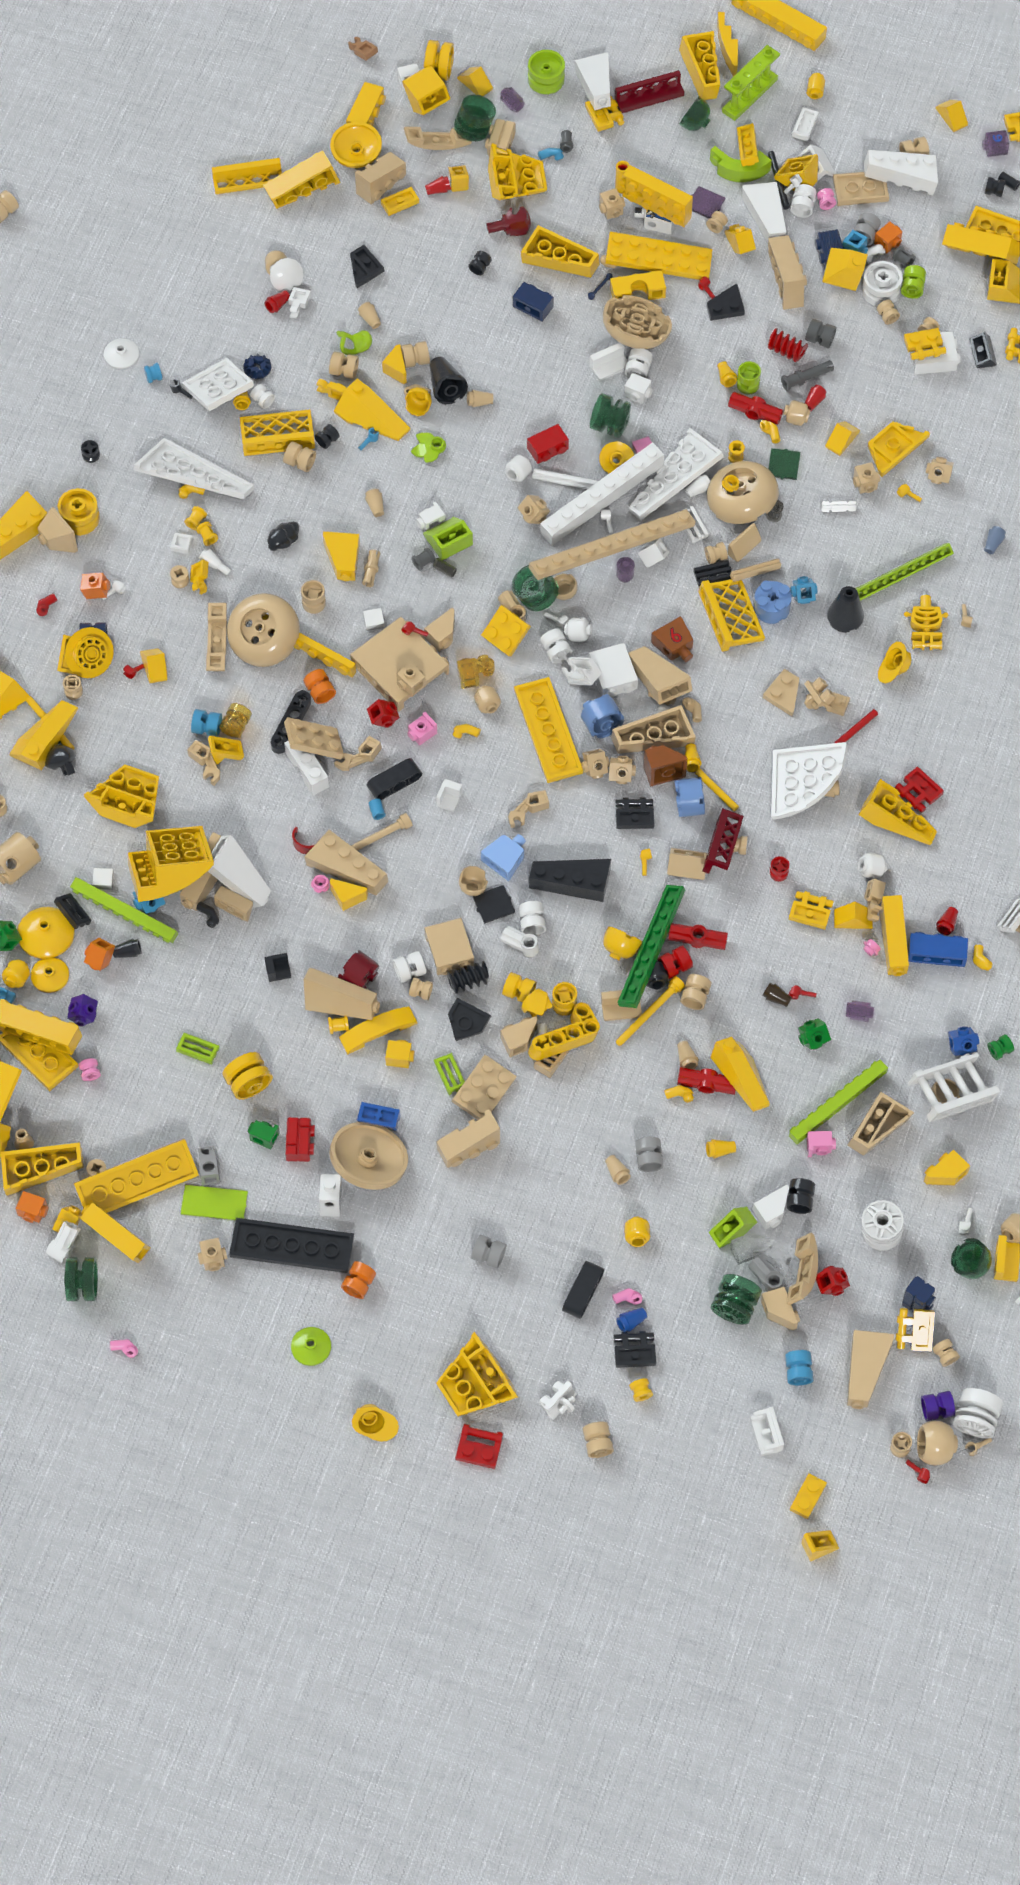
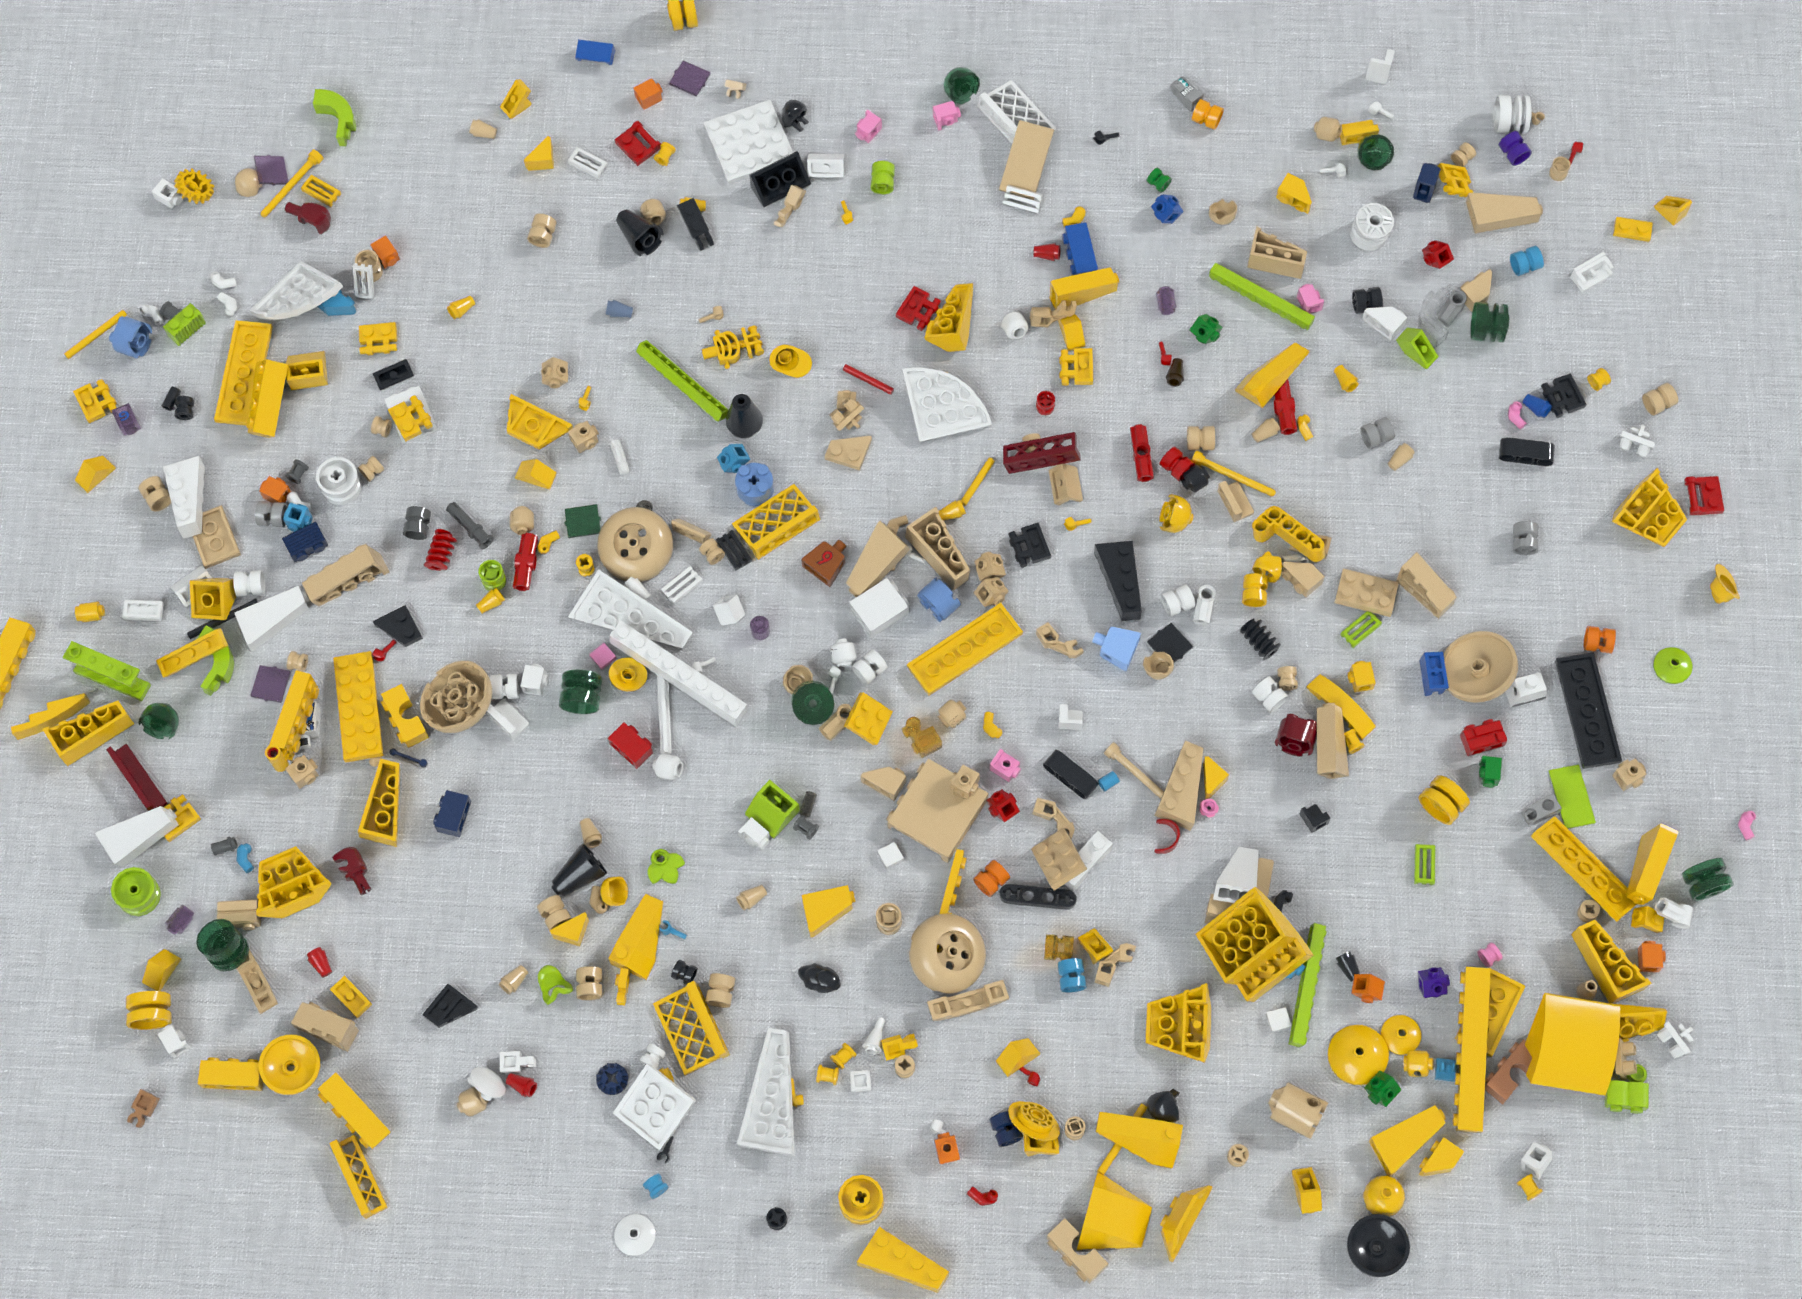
camera: 105 degrees left, 5 degrees up
(56, 533) = (896, 1214): tan slope -> none
(70, 910) = (1330, 1035): black tile -> none
(371, 568) = (832, 875): tan pin -> none
(409, 627) = (901, 807): red hand -> none
(425, 90) = (196, 1010): yellow slope -> none
(449, 946) = (1233, 665): tan panel -> none
(459, 178) = (301, 942): yellow slope -> none
(467, 1020) = (1302, 627): black plate -> none
(480, 262) = (414, 885): black wheel -> none
(533, 509) = (715, 735): tan brick -> none
(564, 998) = (1251, 547): yellow wheel -> none
(583, 671) = (895, 631): white hinge -> none
(611, 544) = (744, 640): tan plate -> none
(637, 1231) = (1454, 422): yellow head -> none
(651, 946) = (1171, 485): green tile -> none
(664, 765) = (976, 530): dark orange slope -> none
(690, 797) = (1000, 495): medium blue brick -> none
(733, 480) = (638, 547): yellow plate -> none
(740, 238) = (314, 632): yellow slope -> none
(755, 570) = (720, 510): tan axle -> none
(796, 180) = (232, 592): white hand -> none
(807, 1252) = (1438, 276): tan slope -> none
(815, 396) = (496, 510): red cone -> none
(826, 199) = (239, 562): bright pink wheel -> none
(844, 268) = (330, 517): yellow slope -> none
(871, 947) = (1098, 307): bright pink plate -> none
(913, 281) = (321, 450): lime wheel -> none
(936, 1443) = (1551, 139): tan wheel -> none
(953, 1105) = (1225, 188): white fence -> none

